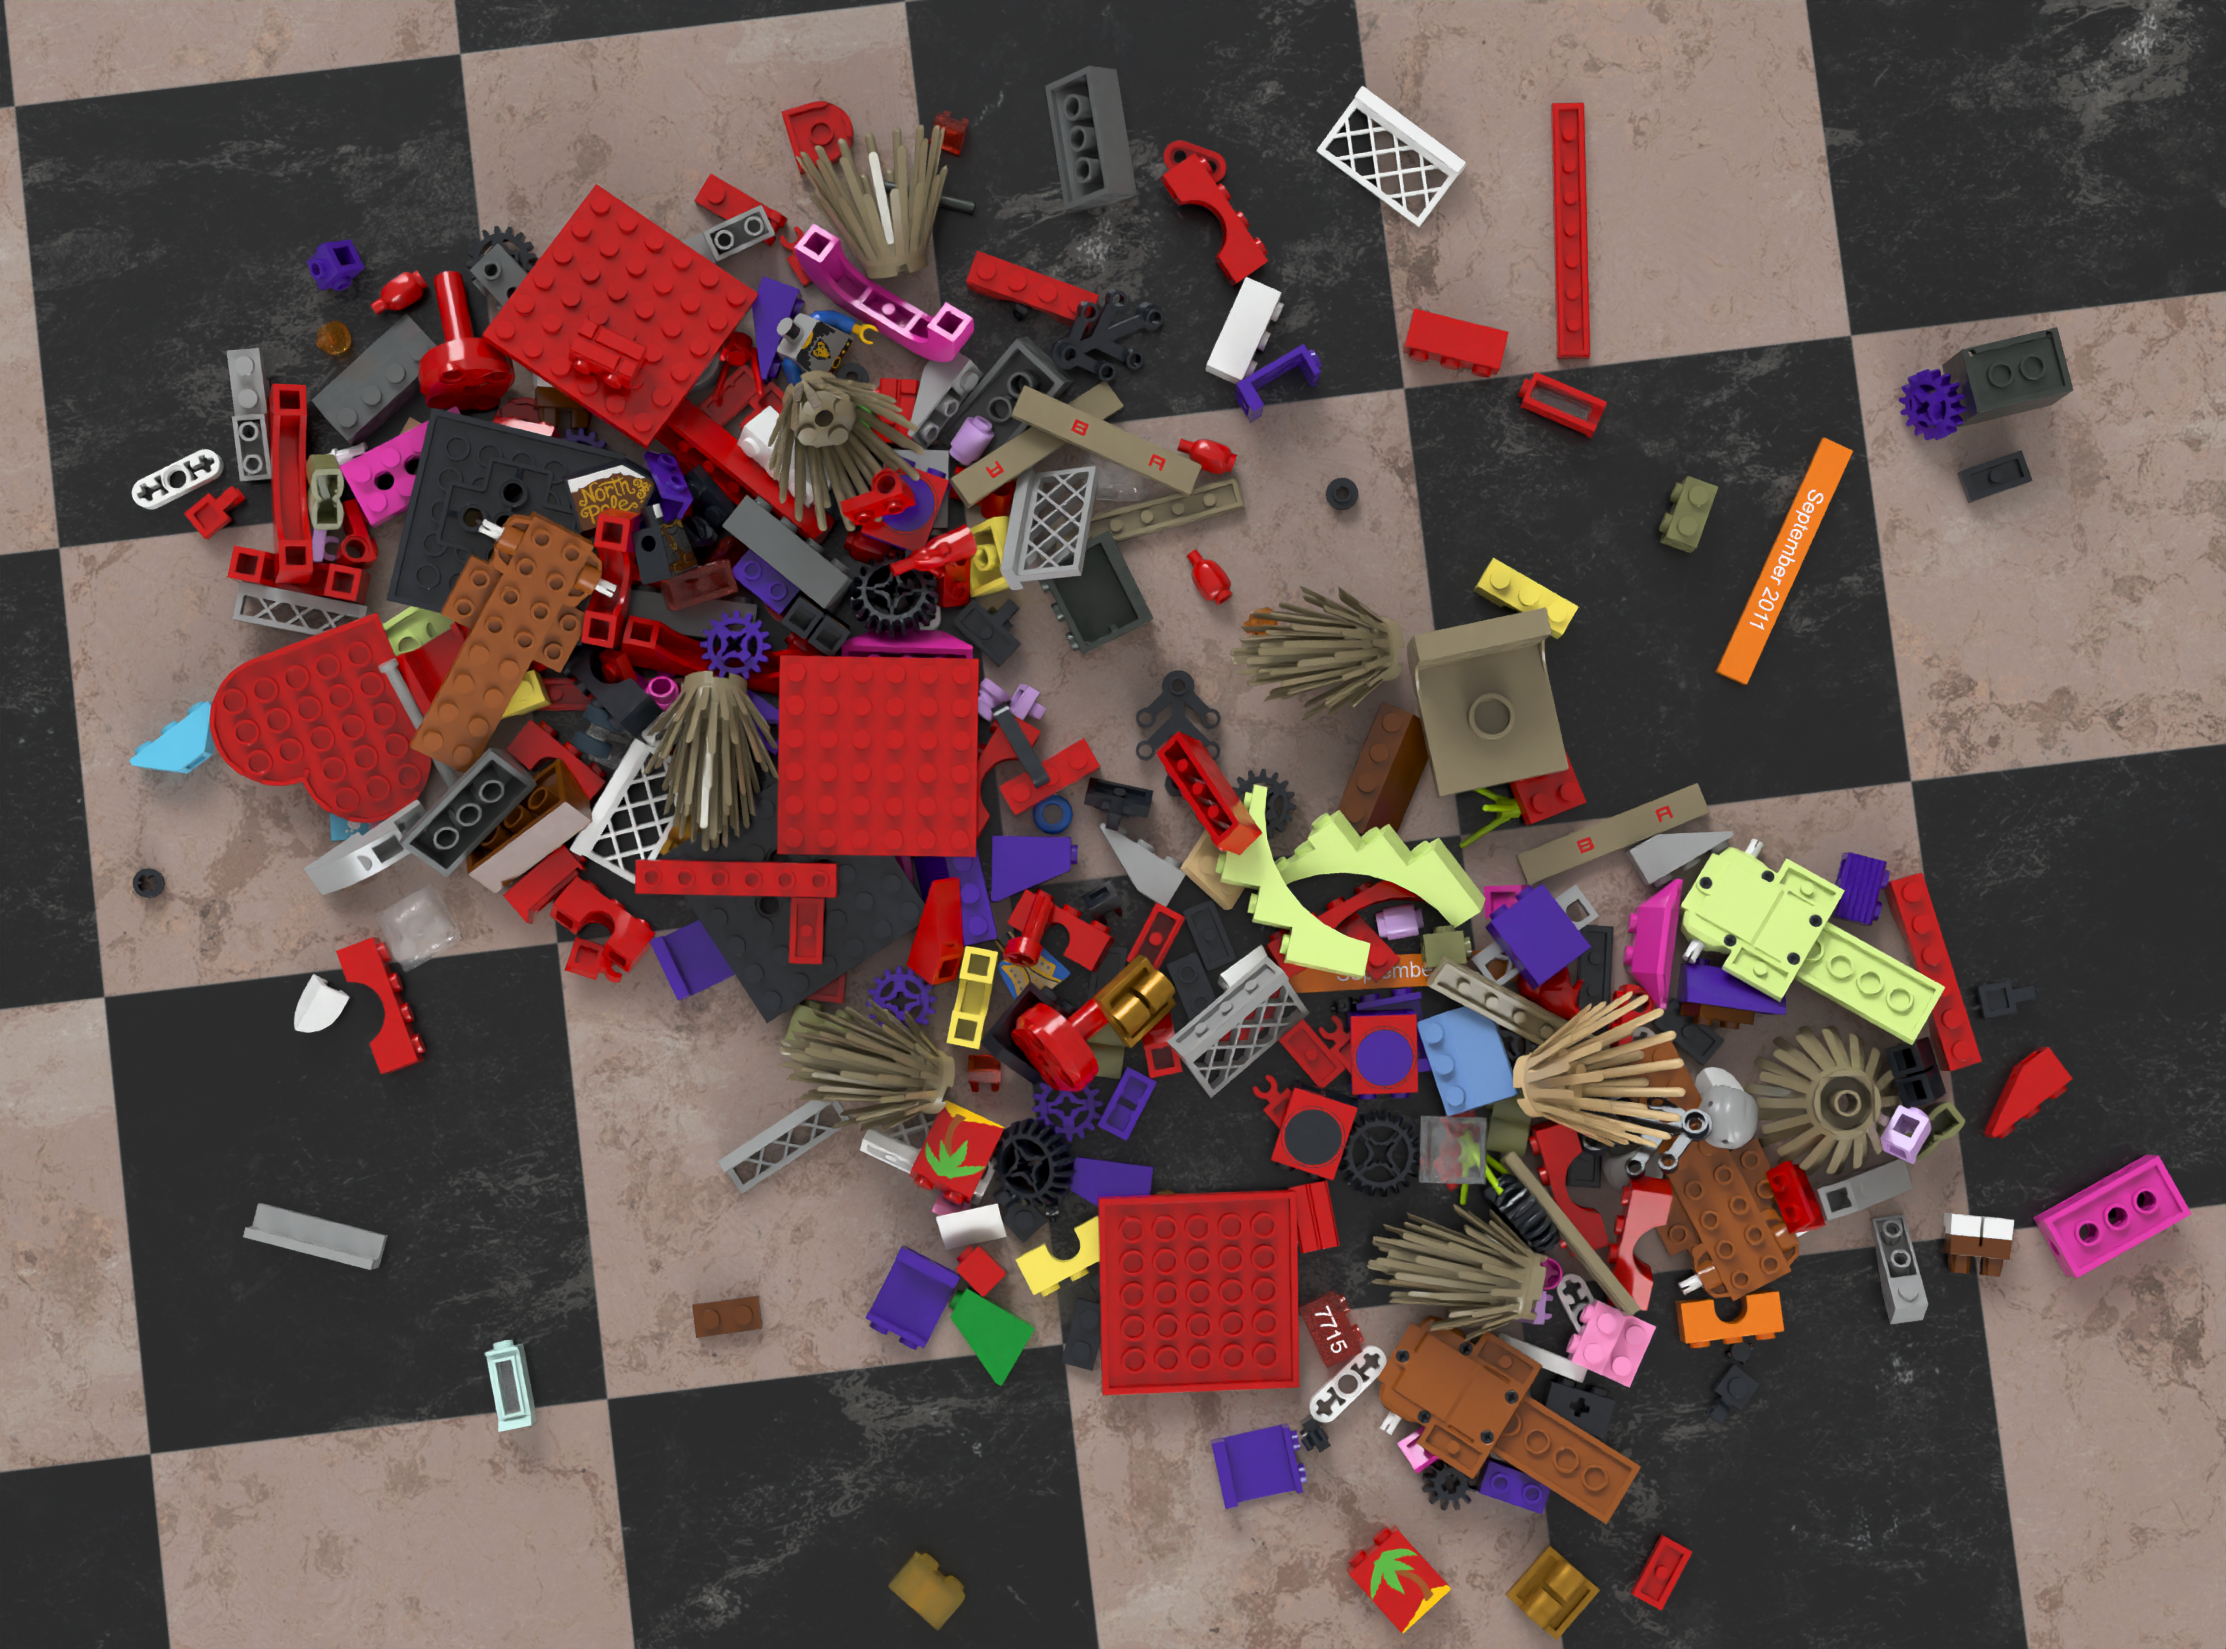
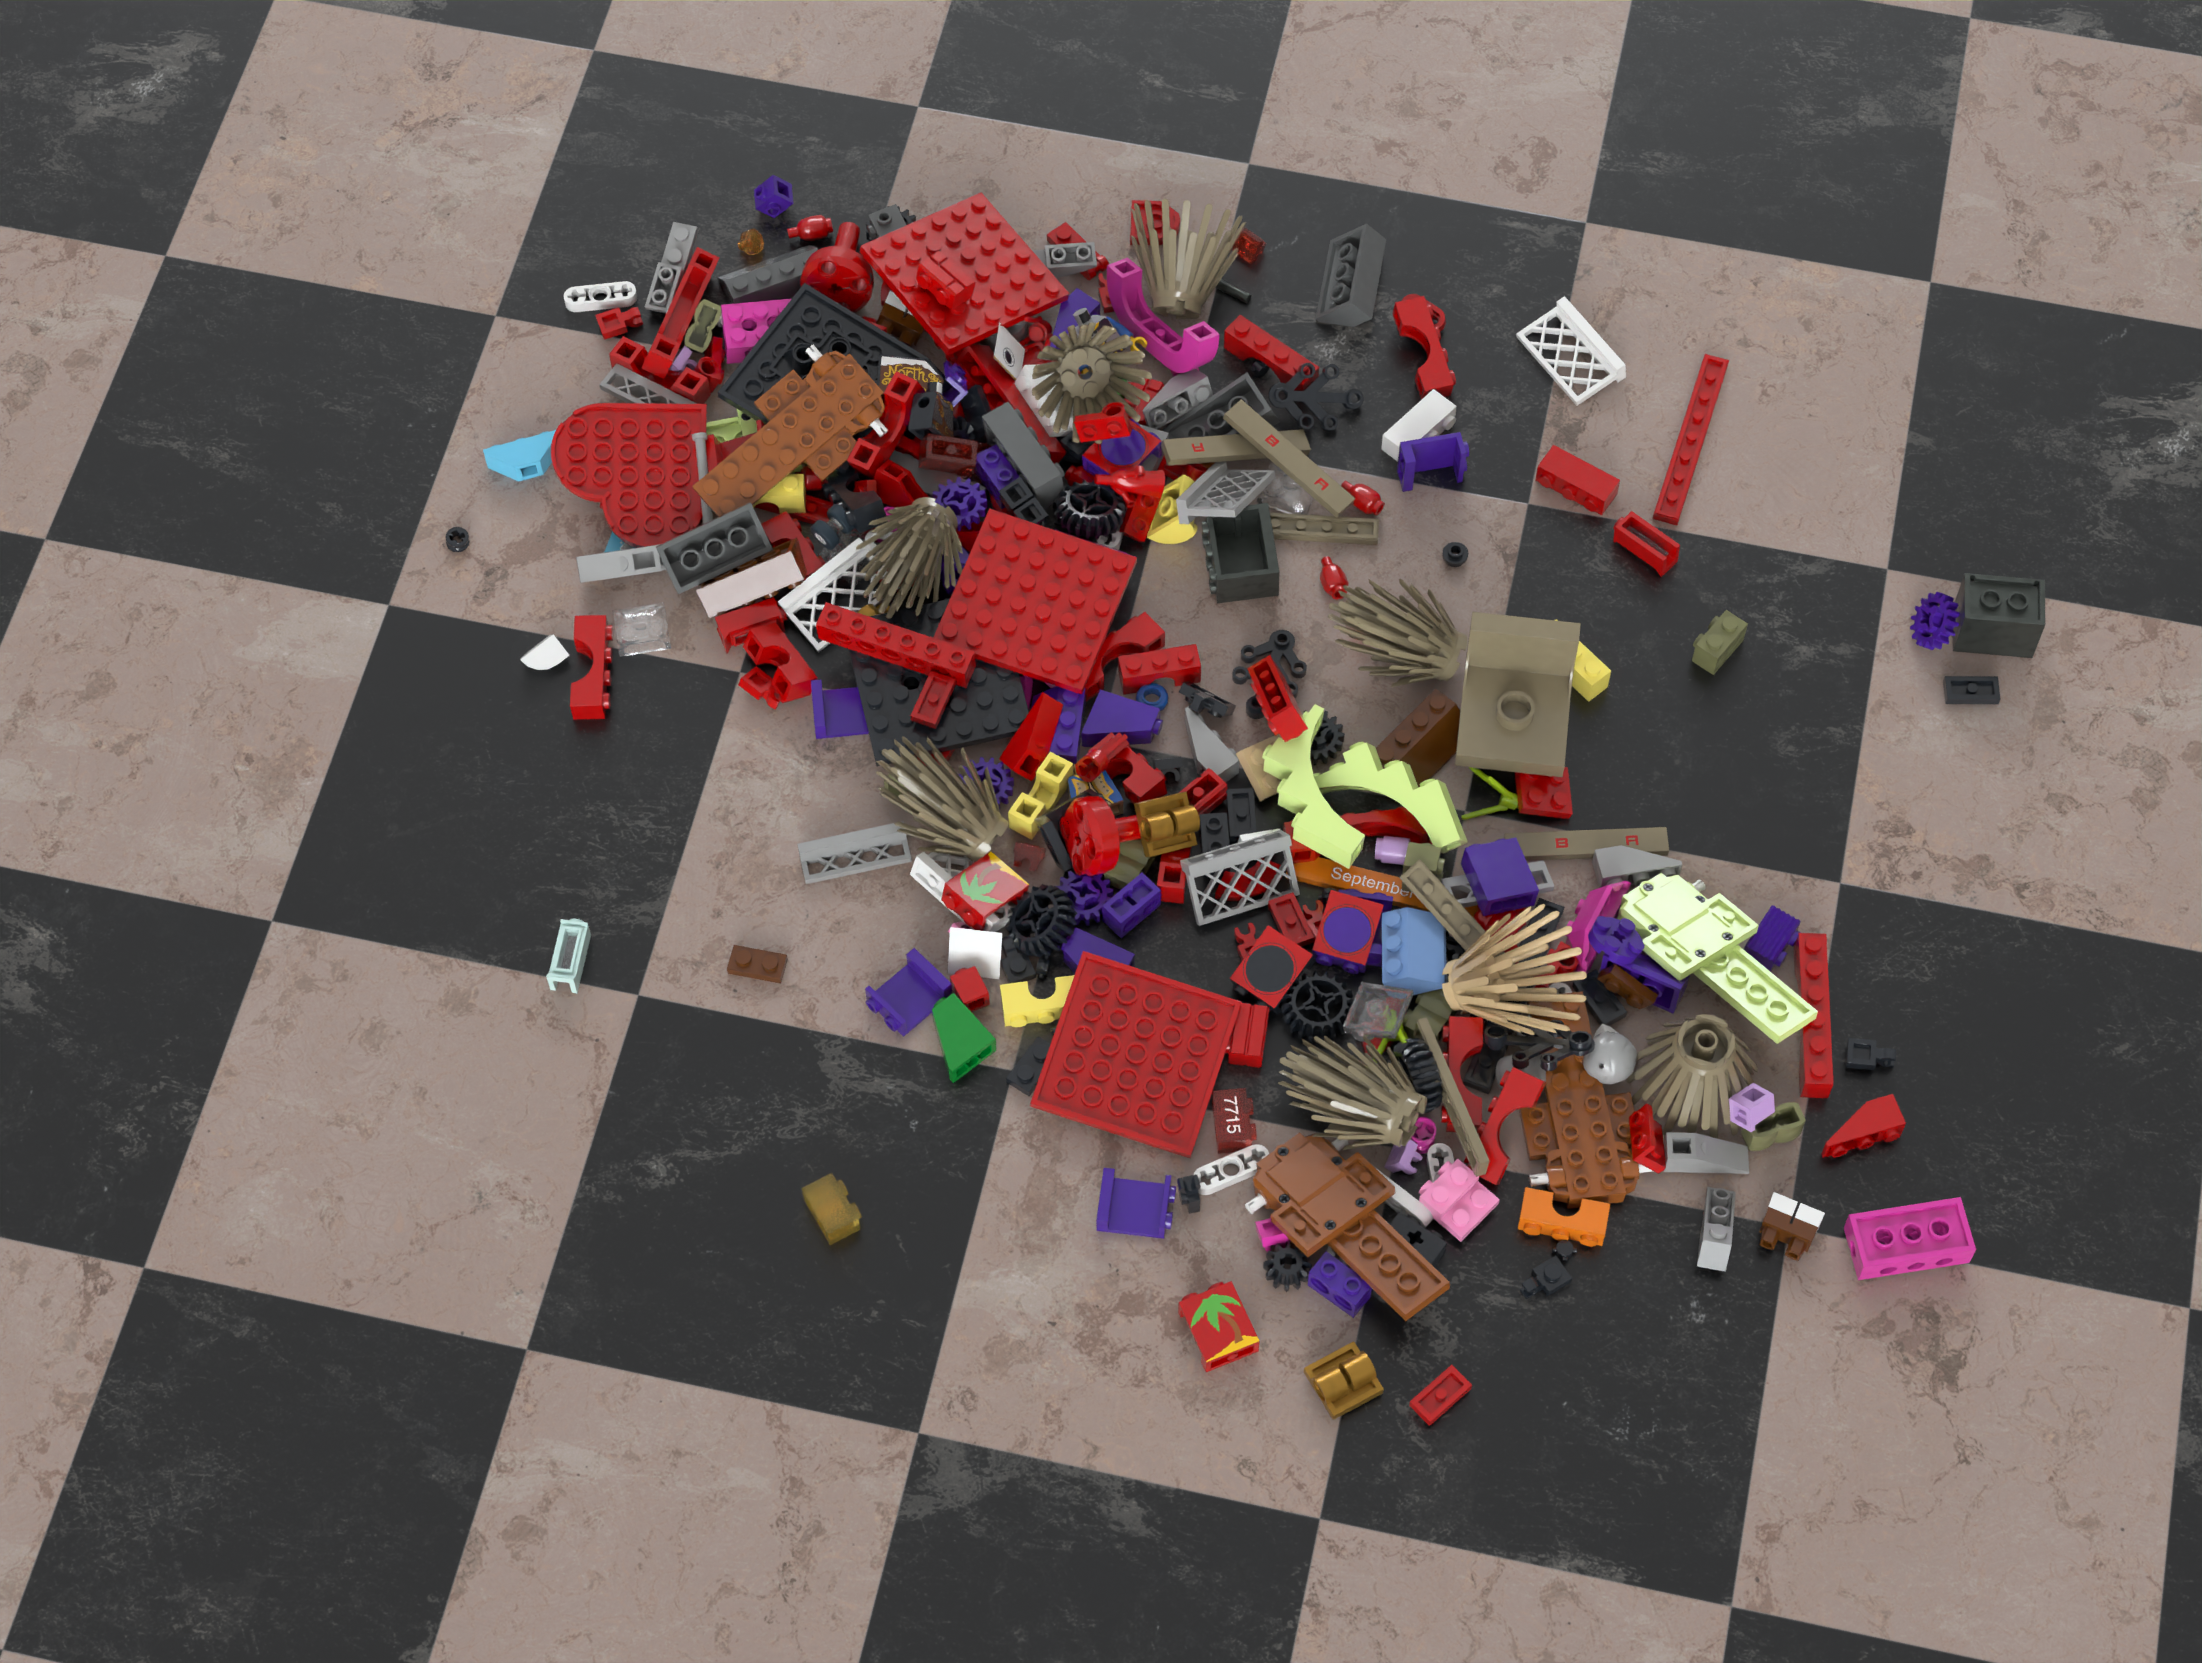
camera: 20 degrees right, 25 degrees down
(317, 1236) = (469, 808): light grey fence -> none
(717, 408) = (1009, 352): none -> white sticker
(971, 440) = (1189, 428): lavender brick -> none
(989, 629) = (1154, 562): black hinge -> none
(989, 697) = (1133, 605): lavender wheel -> none
(1020, 745) = (1146, 628): black beam -> none
(1024, 703) = (1161, 616): lavender tile -> none
(1380, 957) = (1367, 867): red plate -> none
(1704, 964) = (1616, 939): none -> dark purple plate
(1784, 561) = (1785, 700): orange tile -> none
(1923, 1075) = (1777, 1072): black hips -> none

